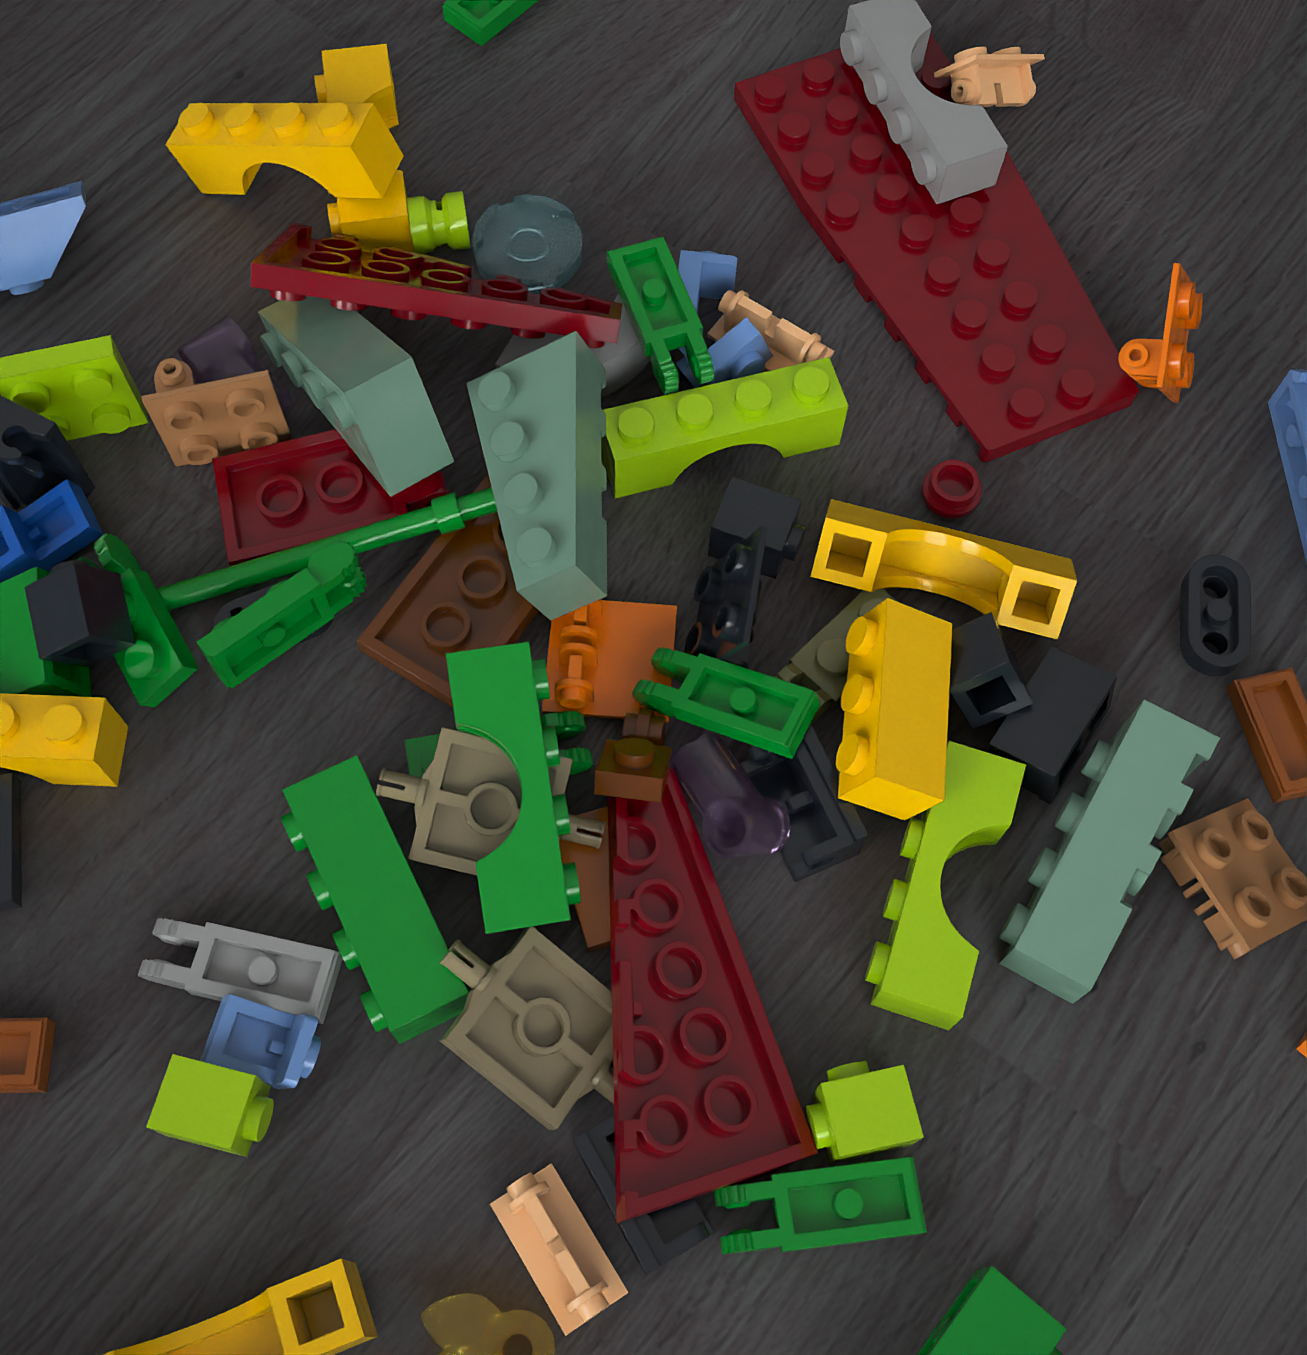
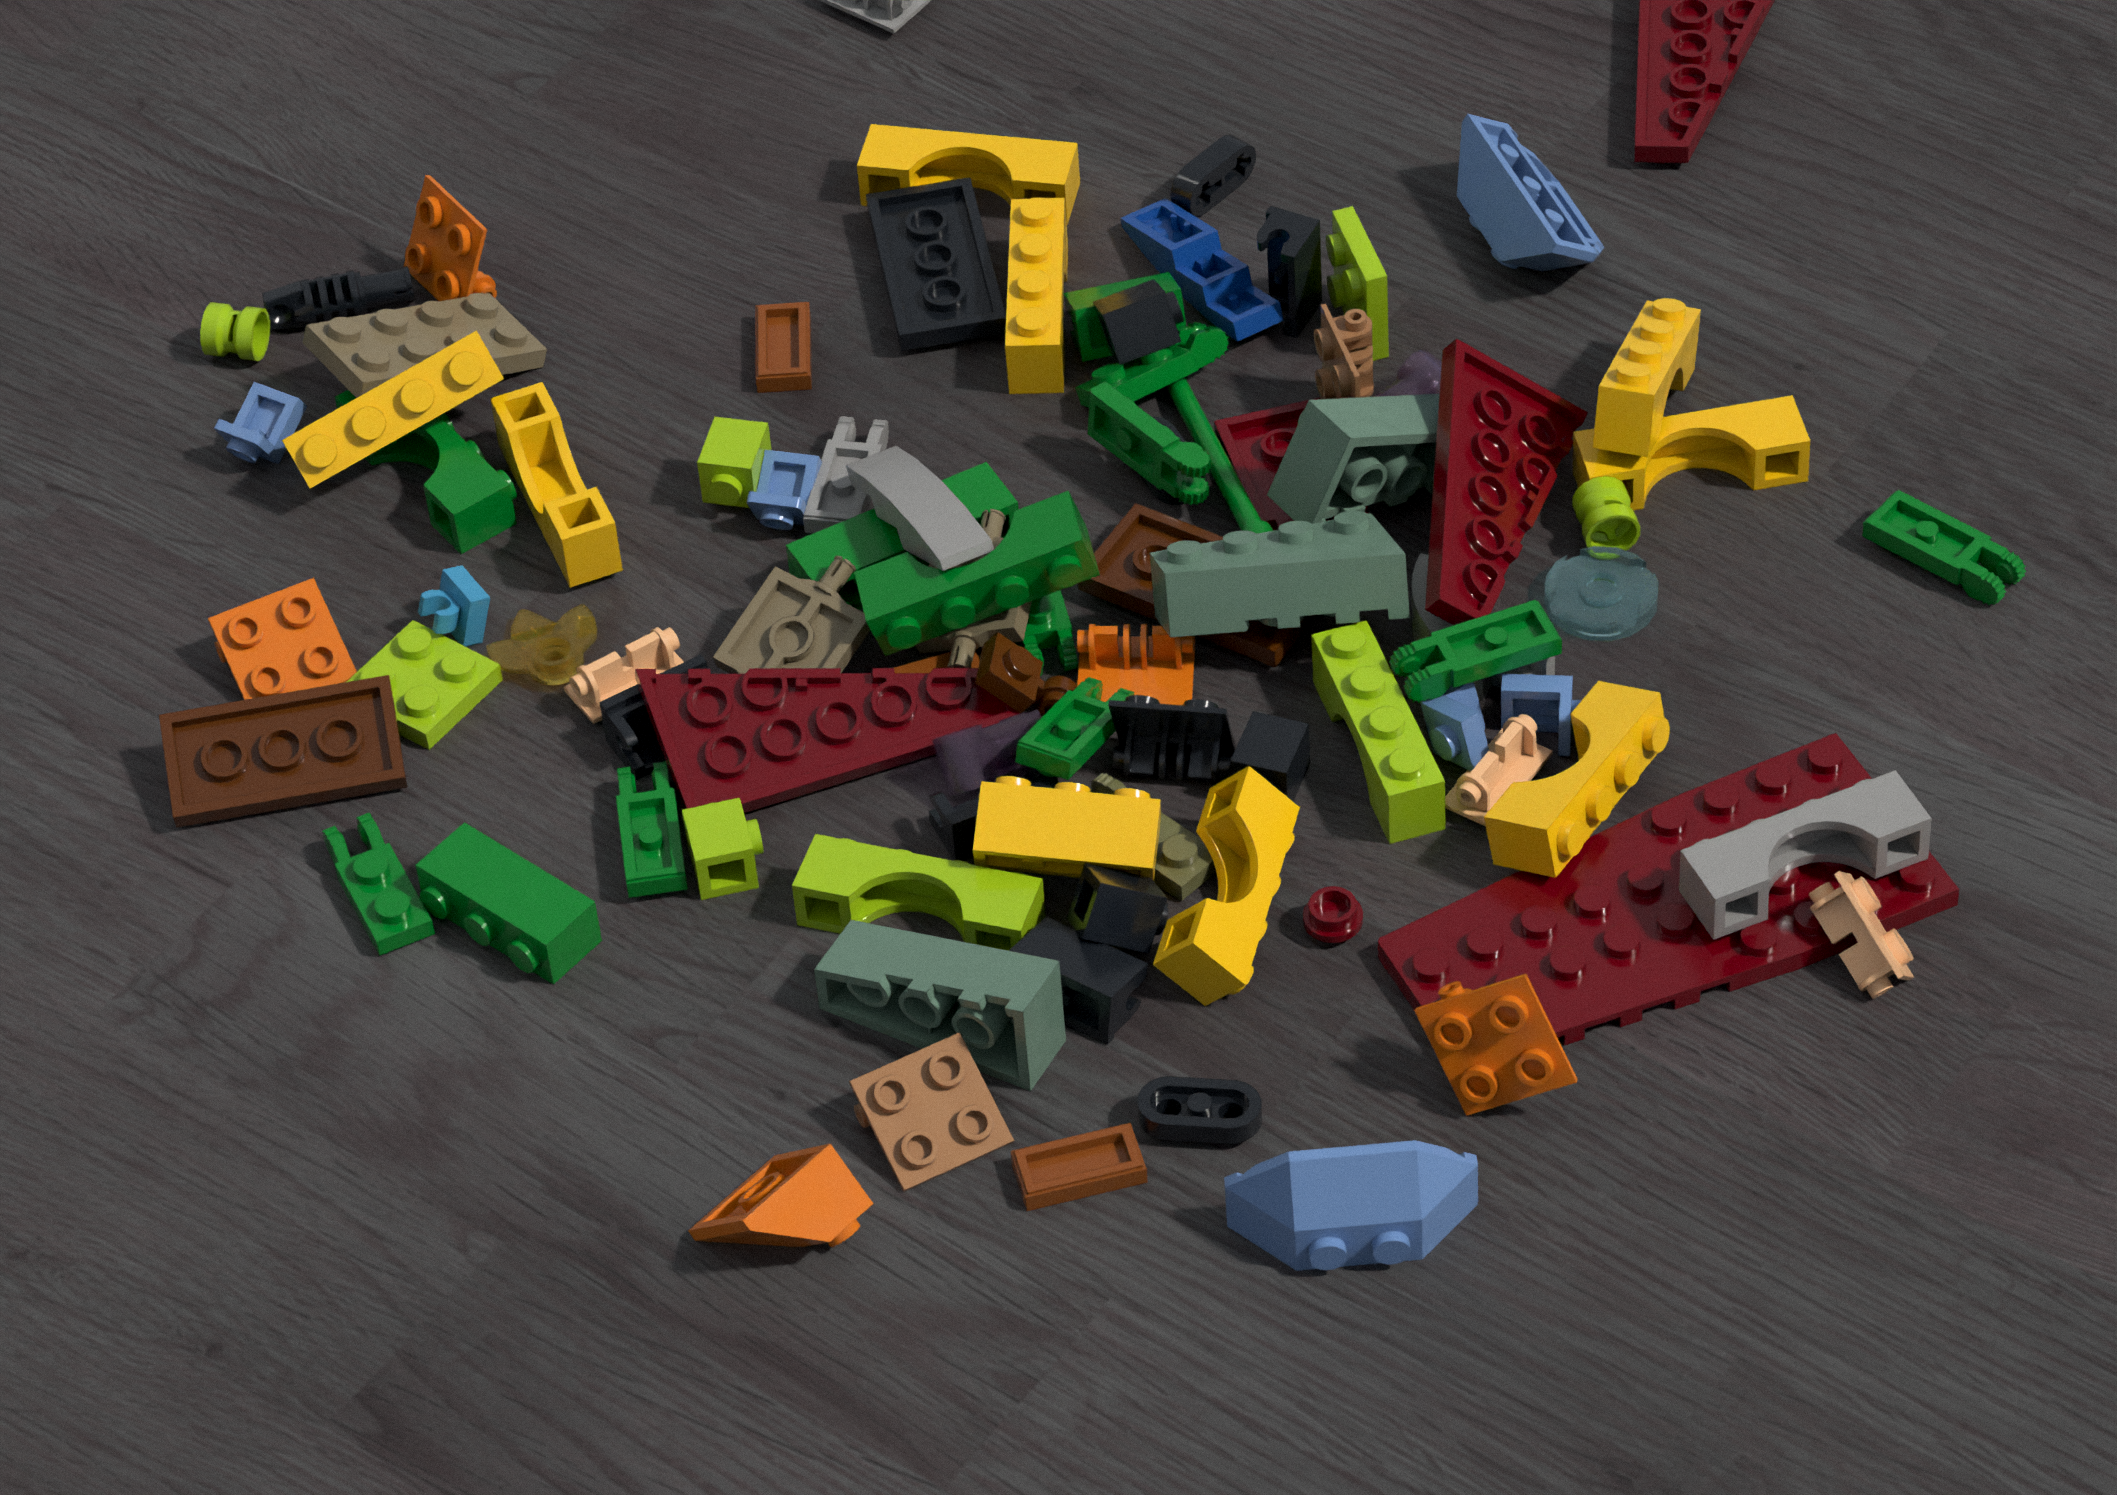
camera: 95 degrees right, 20 degrees down
(388, 851) = (921, 507): none -> light grey slope
(872, 283) = (1549, 819): none -> yellow arch

